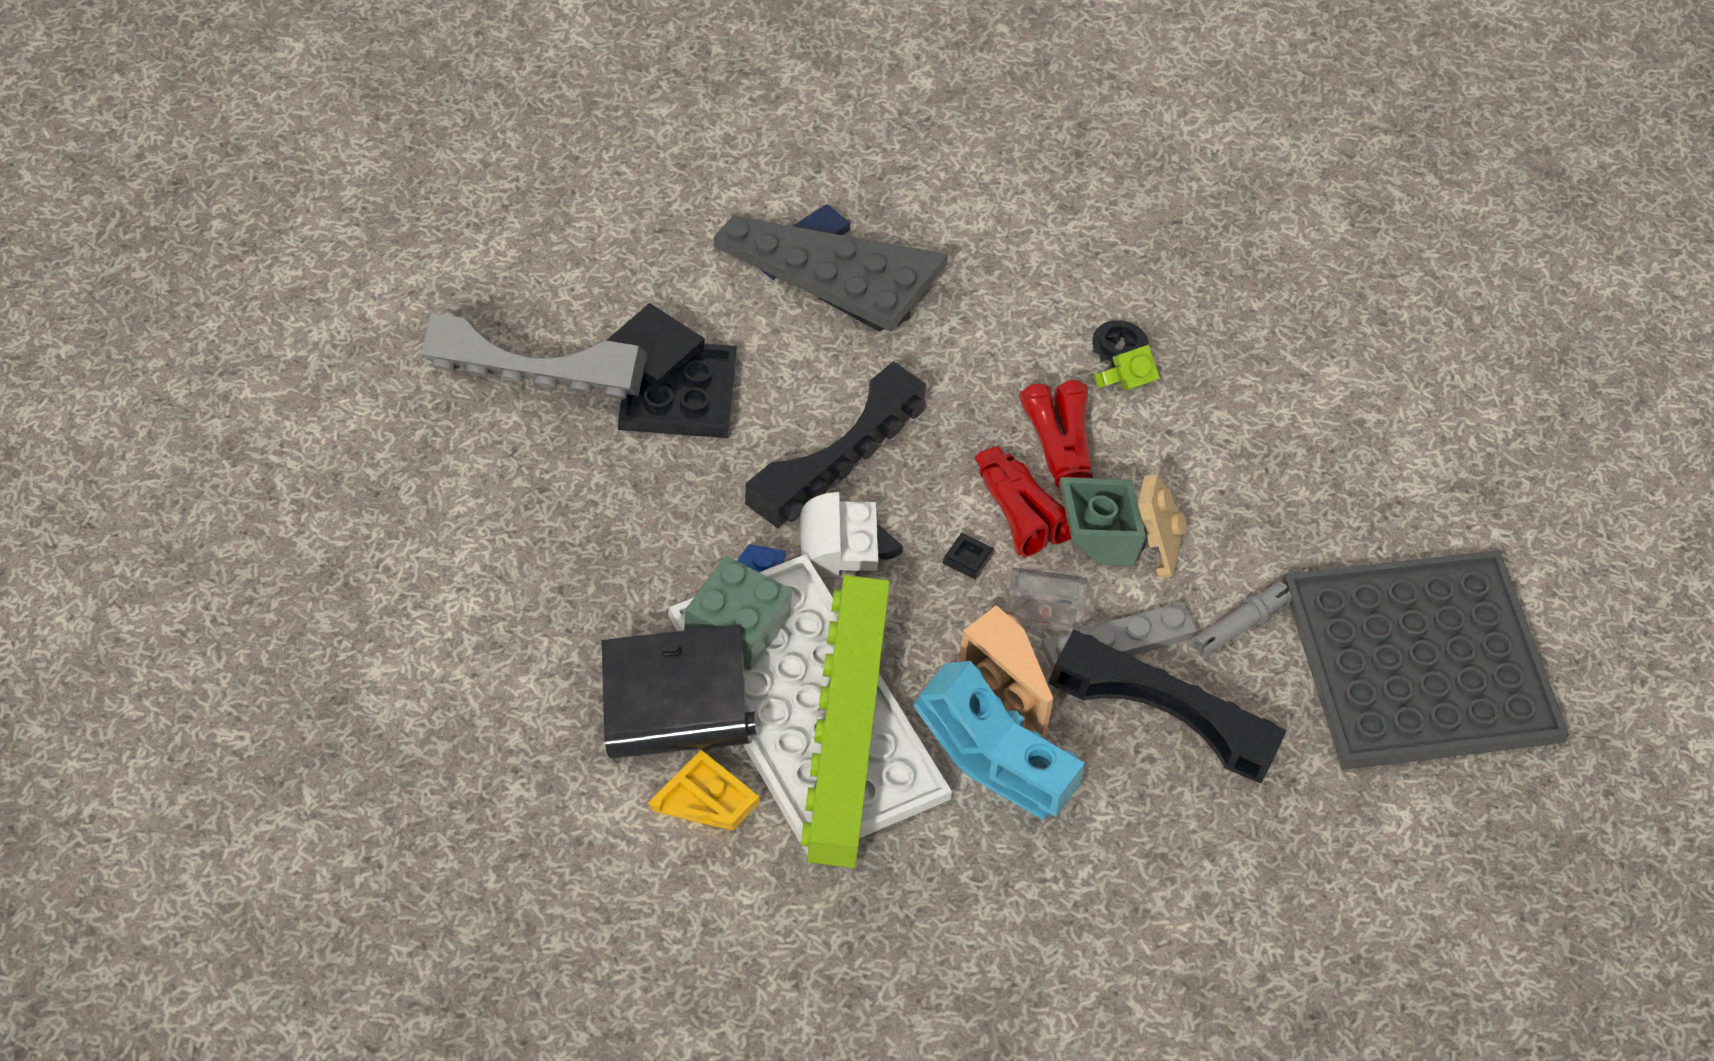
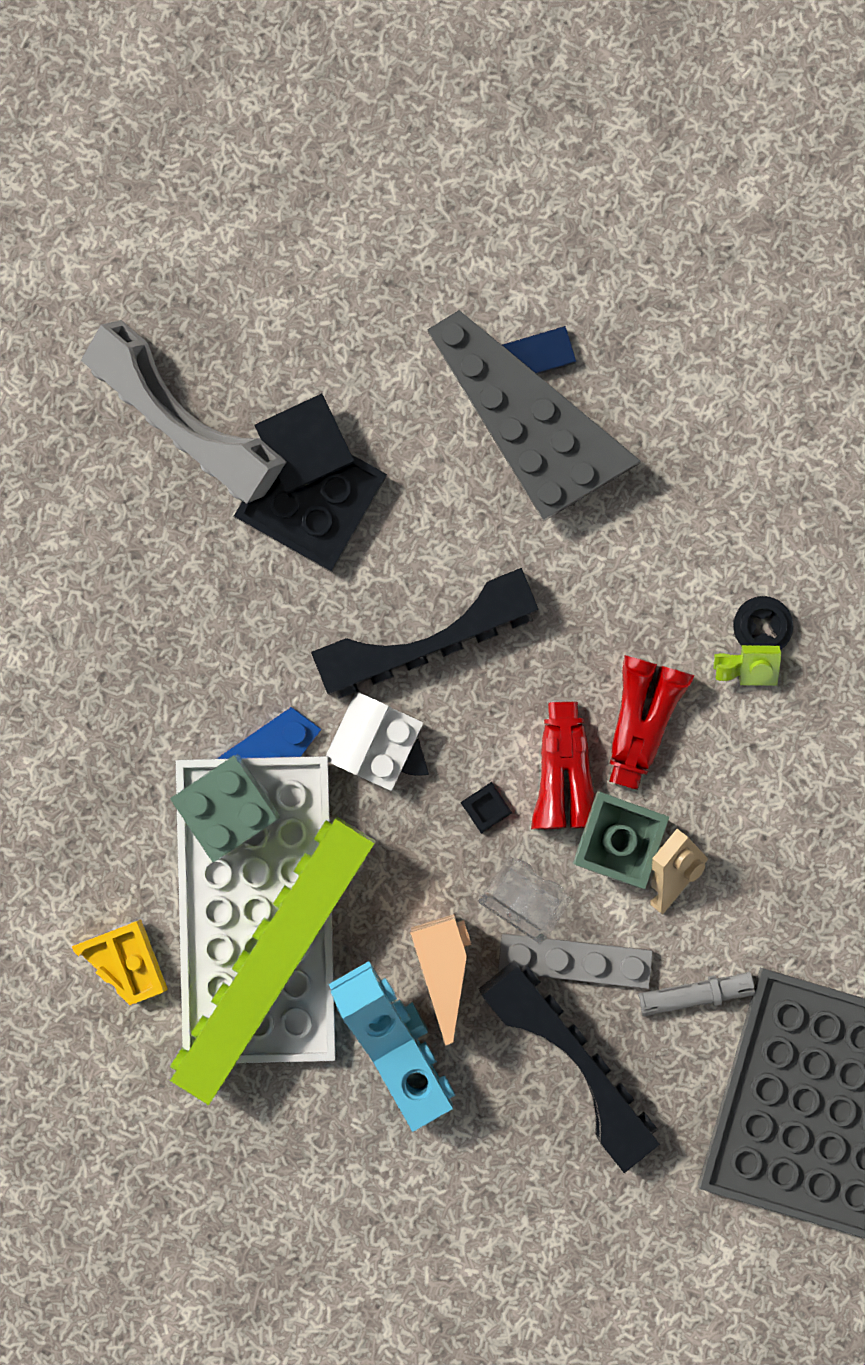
camera: 30 degrees right, 35 degrees up
(675, 699) = (132, 865): black door -> none

